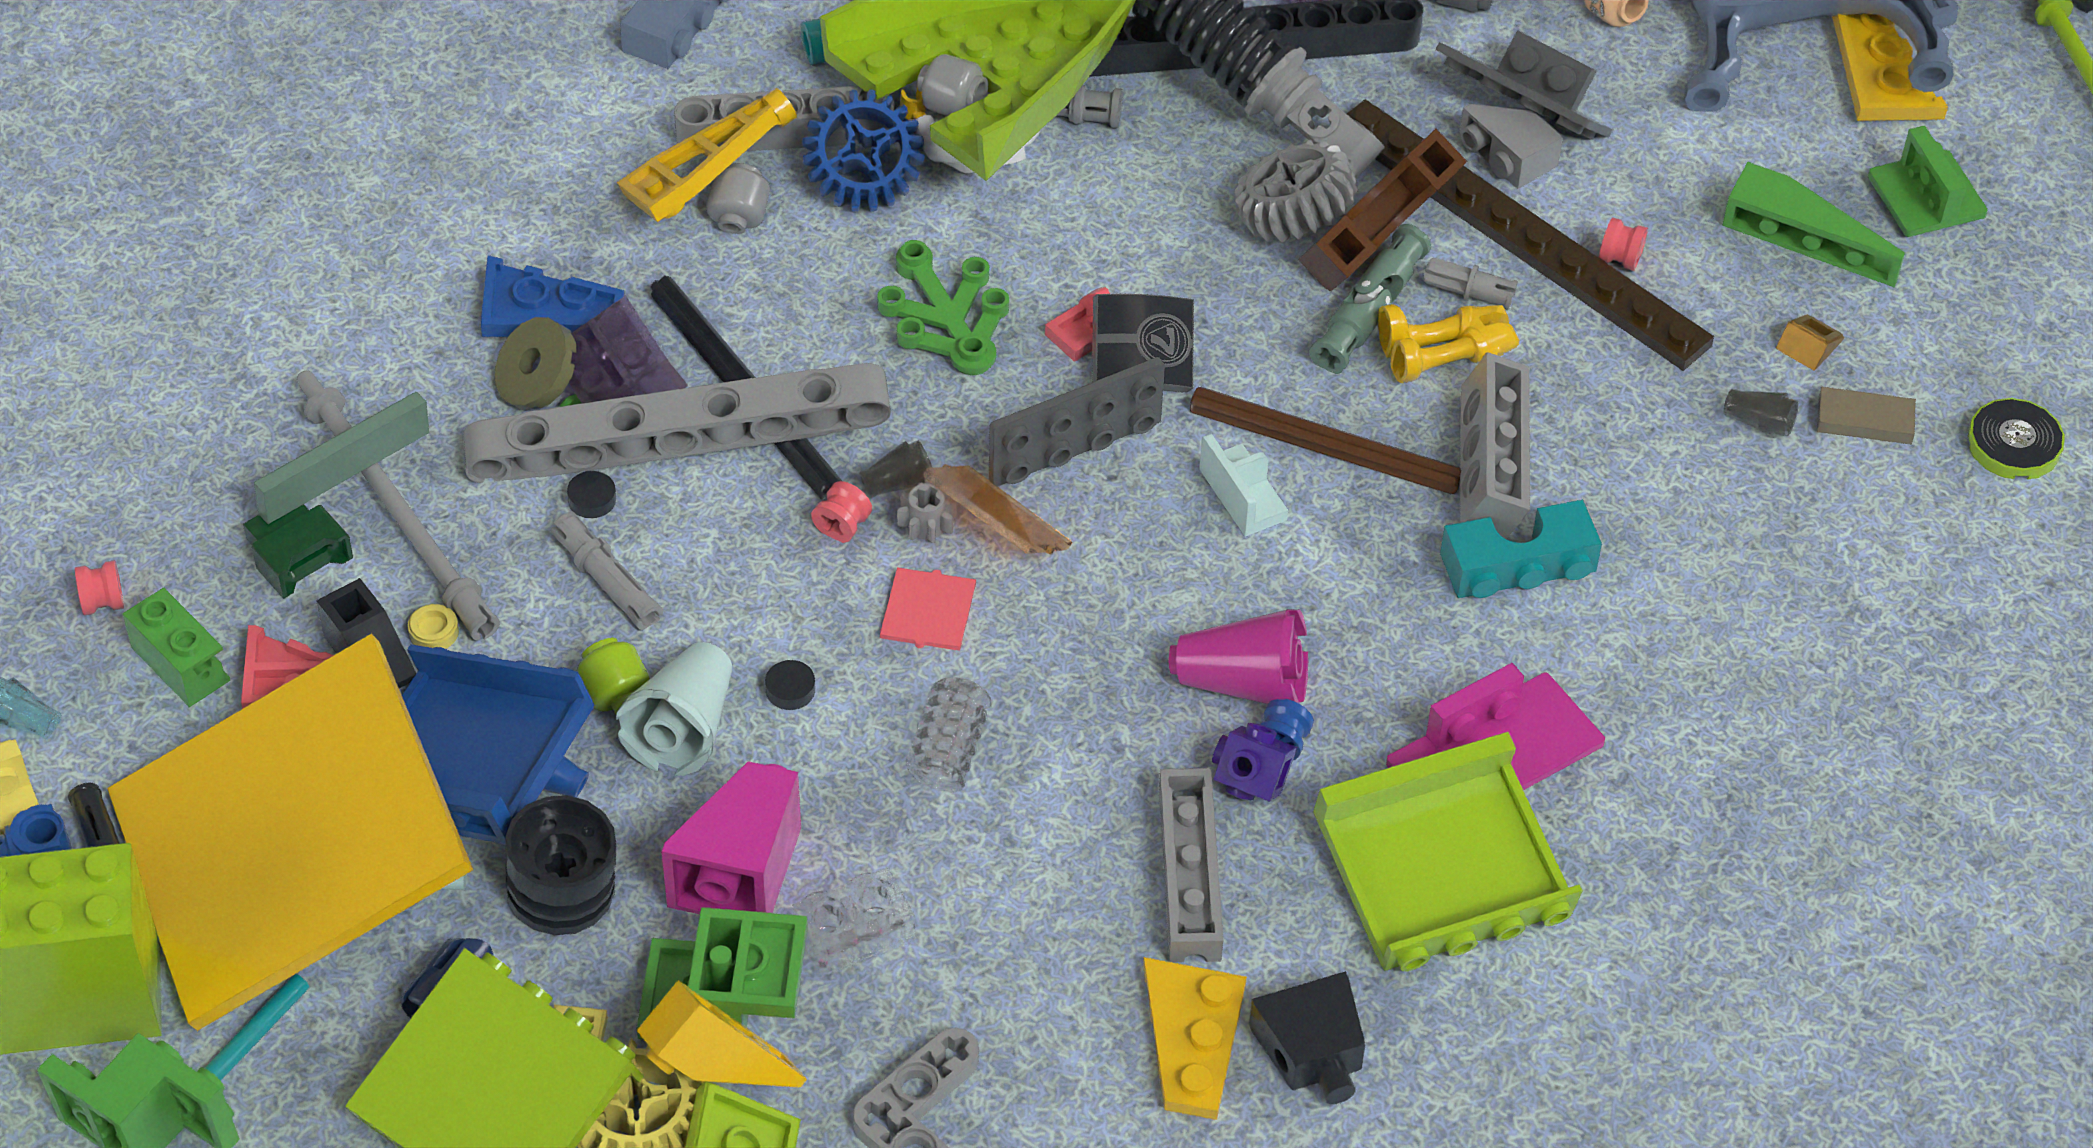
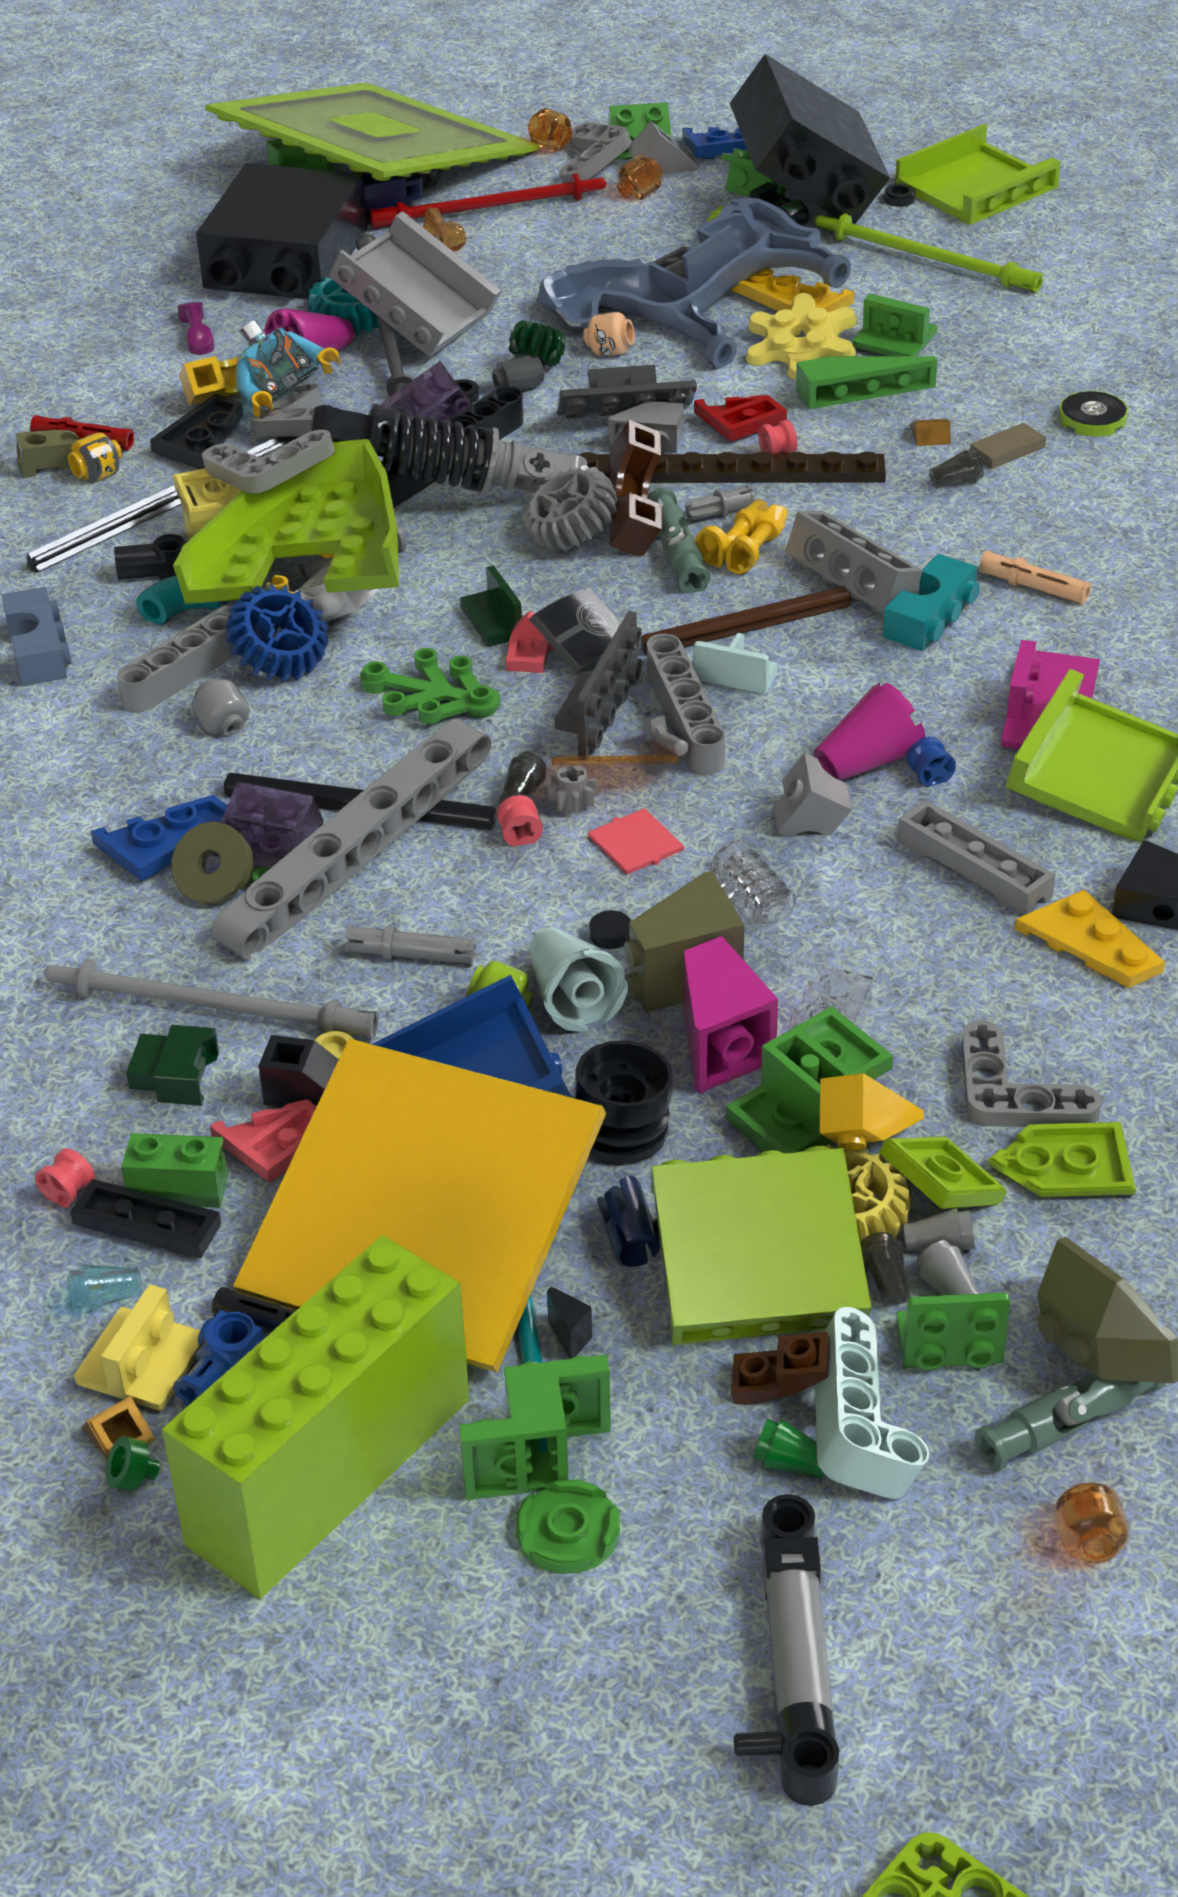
camera: 40 degrees left, 10 degrees down
(116, 673) = (146, 1218): none -> black plate
(291, 1035) = (569, 1320): none -> black slope
(341, 457) = (155, 986): sand green tile -> none
(591, 494) = (337, 914): black tile -> none
(664, 193) = (177, 726): yellow plate -> none
(818, 736) = (670, 927): none -> olive slope
(951, 84) = (304, 558): light grey head -> none
(1071, 519) = (663, 742): none -> light grey bar
(1099, 257) = (493, 610): none -> dark green panel
(1112, 687) = (811, 800): none -> light grey brick
(1139, 494) = (685, 703): none -> light grey beam
(1253, 762) = (943, 782): dark purple brick -> none
(1630, 189) = (741, 415): none -> red wing
(1663, 580) = (1034, 577): none -> light nougat pin
(1820, 151) = (816, 323): none -> light yellow plate

